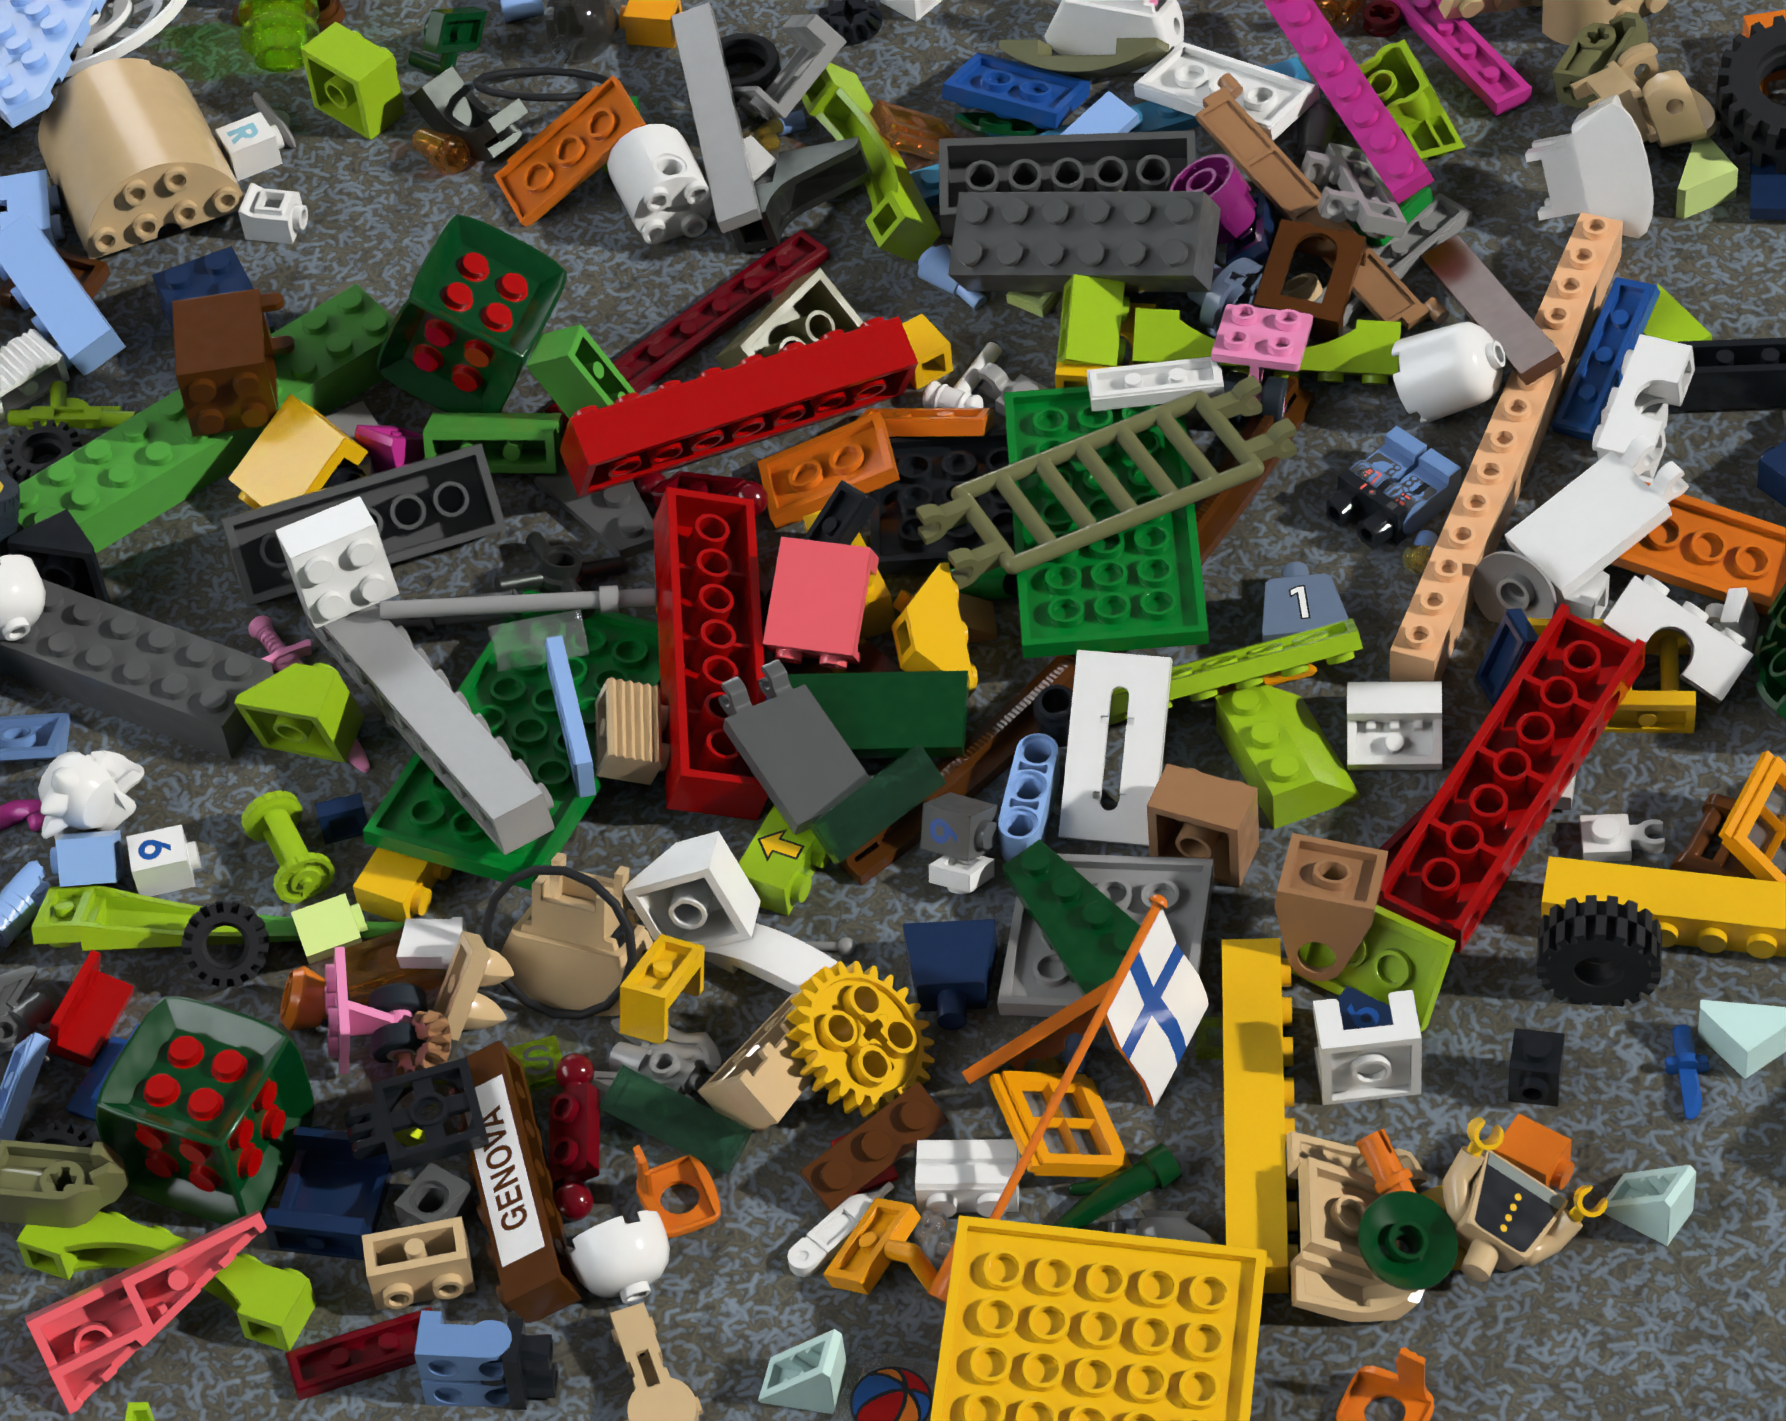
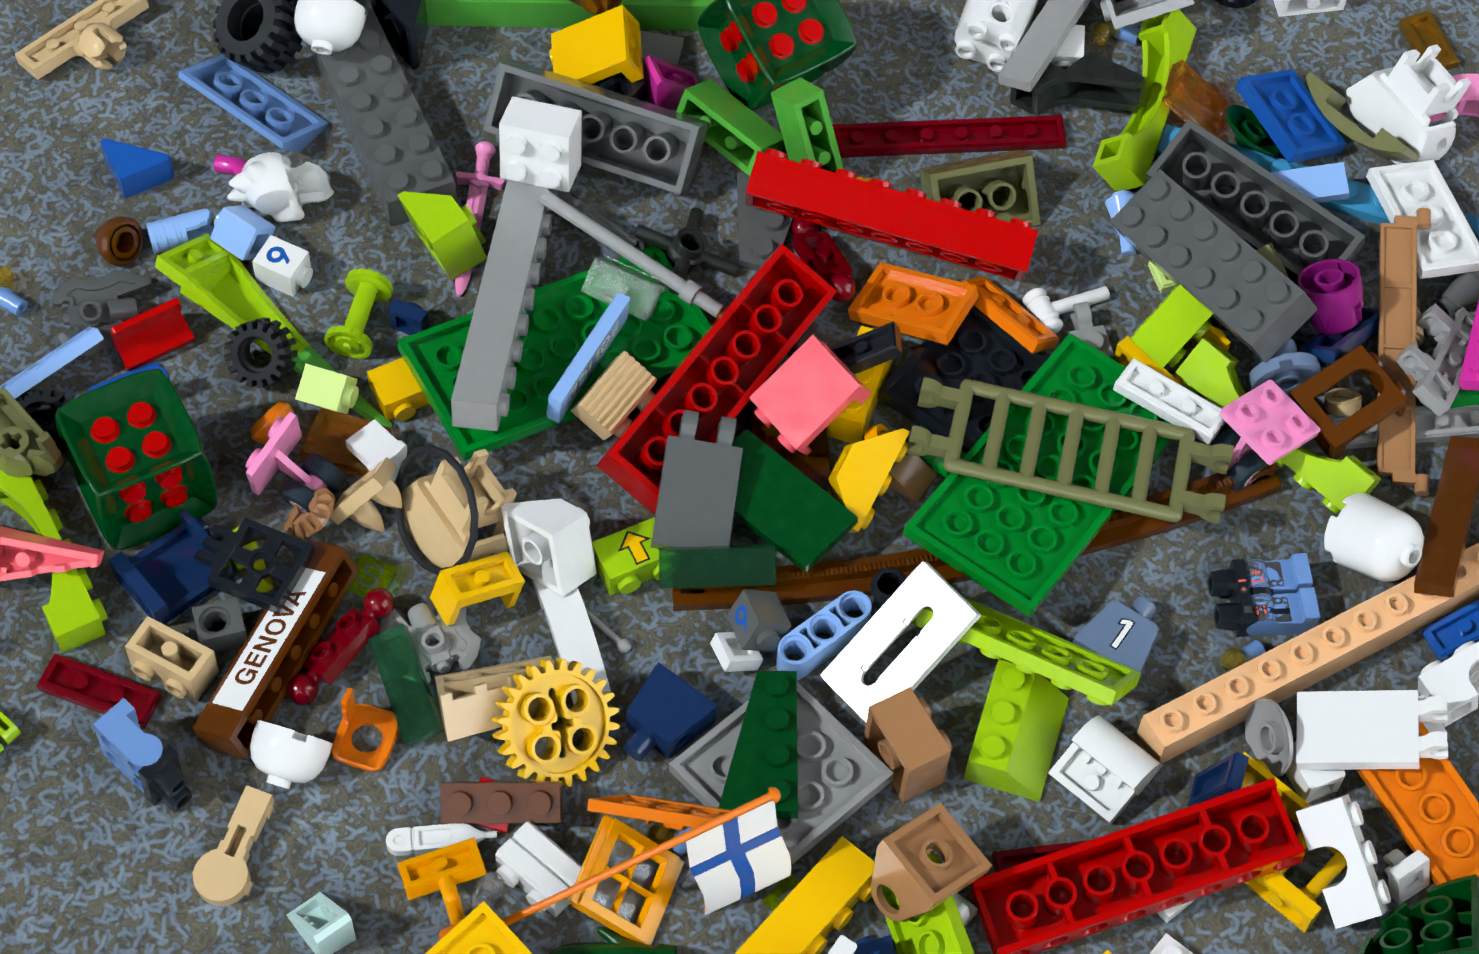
camera: 30 degrees right, 10 degrees up
(930, 349) = (1052, 259): yellow brick -> none

